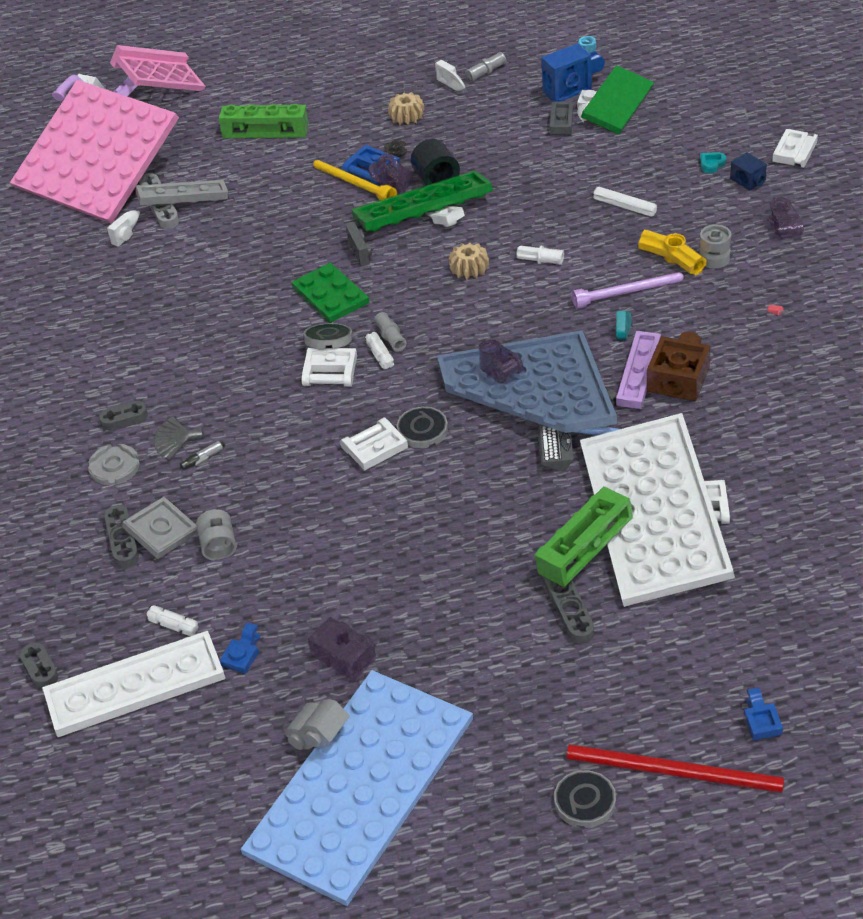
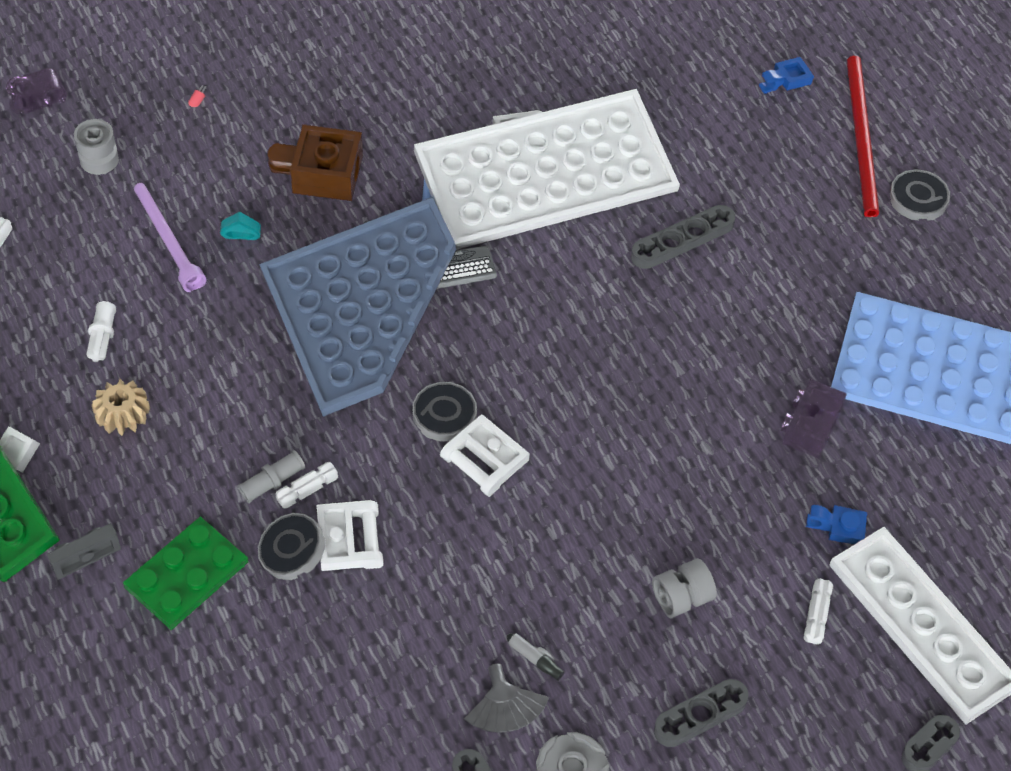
camera: 110 degrees left, 10 degrees up
(160, 527) = (681, 663): light grey plate -> none
(316, 724) = (932, 411): light grey brick -> none
(498, 360) = (352, 323): clear purple piece -> none
(583, 536) = (615, 212): bright green brick -> none
(634, 380) = (318, 206): lavender plate -> none
(673, 249) = (95, 192): yellow piece -> none

